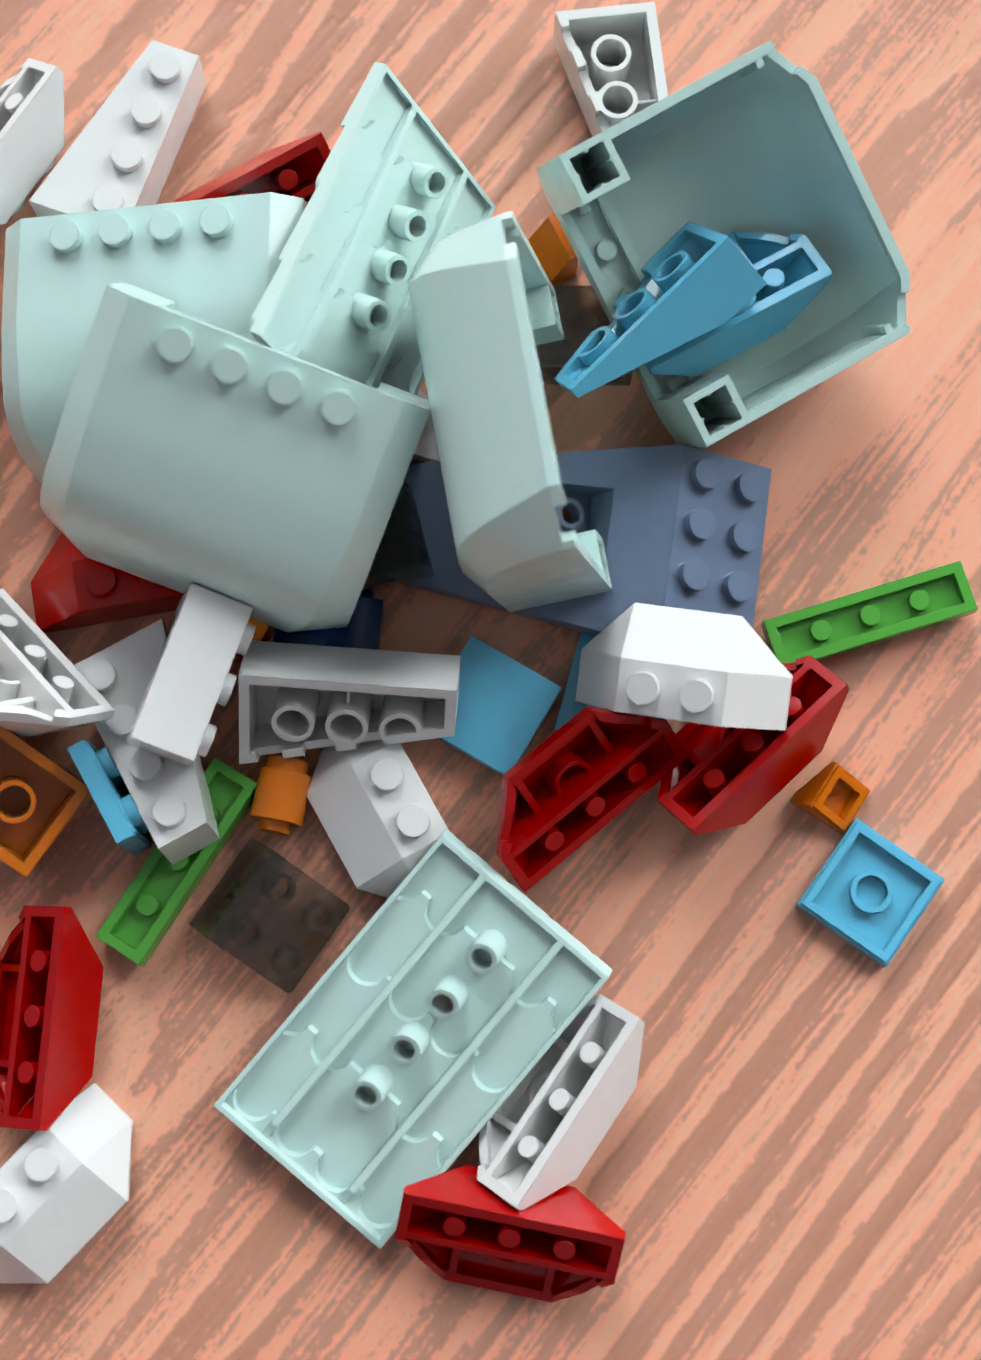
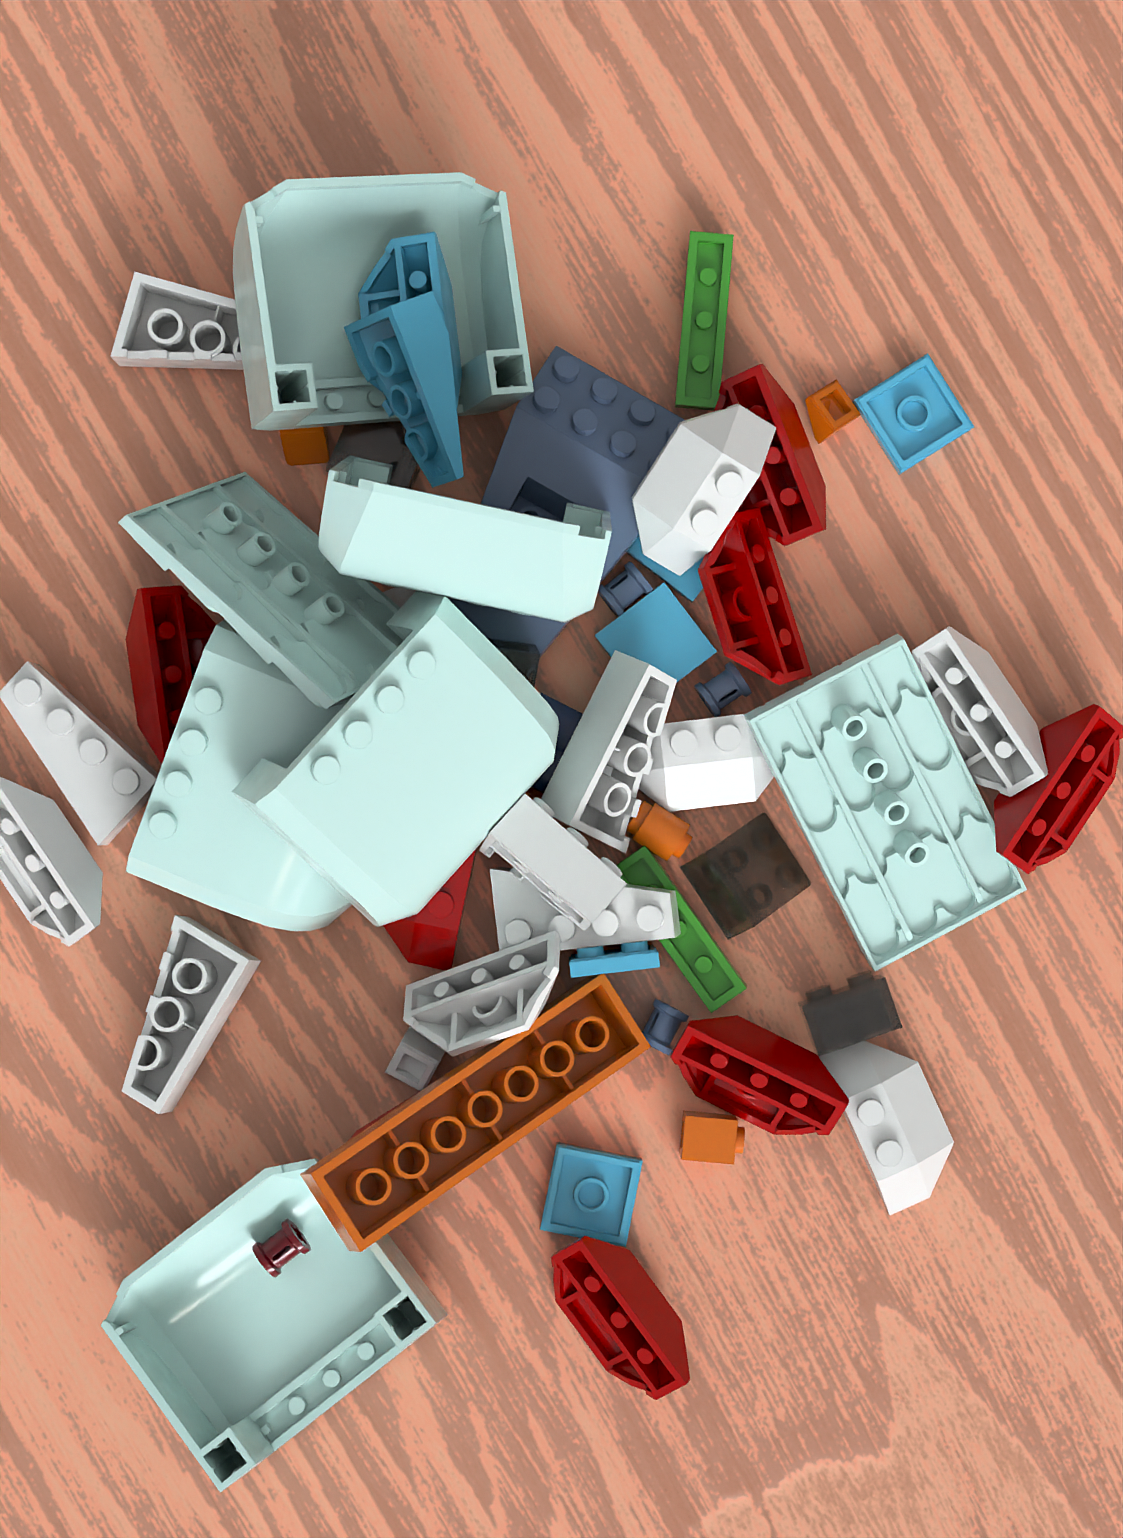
camera: 70 degrees left, 10 degrees up
(60, 887) = (663, 1026): none -> sand blue bush
(154, 1095) = (849, 1013): none -> clear smoke brick
(468, 802) = (723, 689): none -> sand blue bush
(535, 648) = (624, 589): none -> sand blue bush

